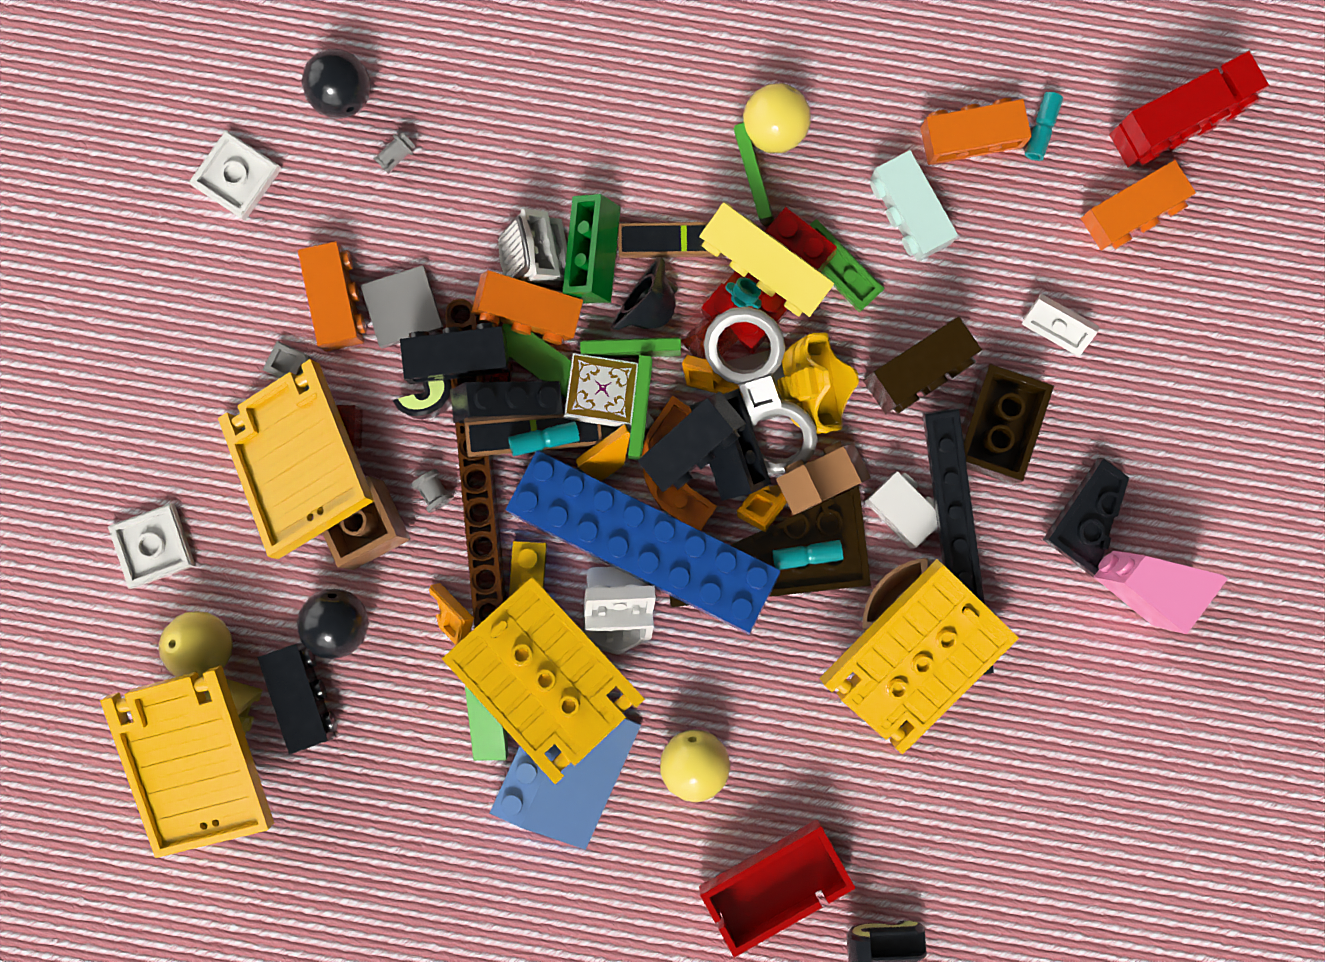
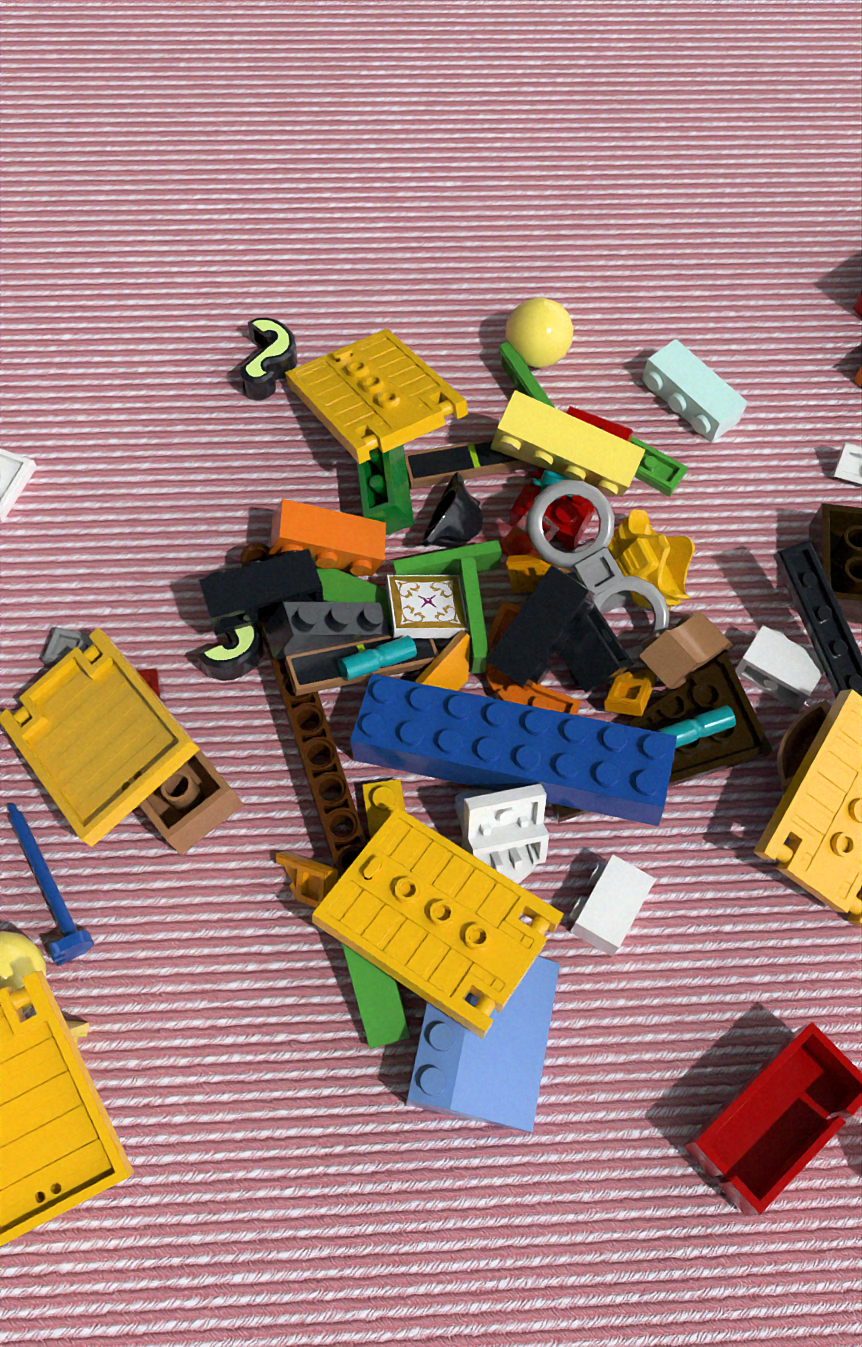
camera: 20 degrees left, 20 degrees down
(257, 625) = (74, 941): none -> blue piece
(298, 697) = (138, 1016): black brick -> none
(332, 296) = (112, 571): orange brick -> none
(332, 623) = (168, 911): black piece -> none
(336, 83) = (85, 374): black piece -> none
(395, 152) = (161, 423): light grey pin -> none
(401, 306) = (179, 567): light grey tile -> none
(432, 490) = (259, 747): light grey bush -> none
(516, 97) = (270, 363): none -> black animal
(534, 248) = (321, 480): white piece -> none
(601, 160) = (375, 394): none -> yellow door
(693, 689) = (611, 905): none -> white brick
(695, 765) = (640, 987): light yellow piece -> none
(923, 367) = (754, 522): dark brown brick -> none
(975, 131) = (730, 320): orange brick -> none
(1045, 122) = (791, 309): teal piece -> none

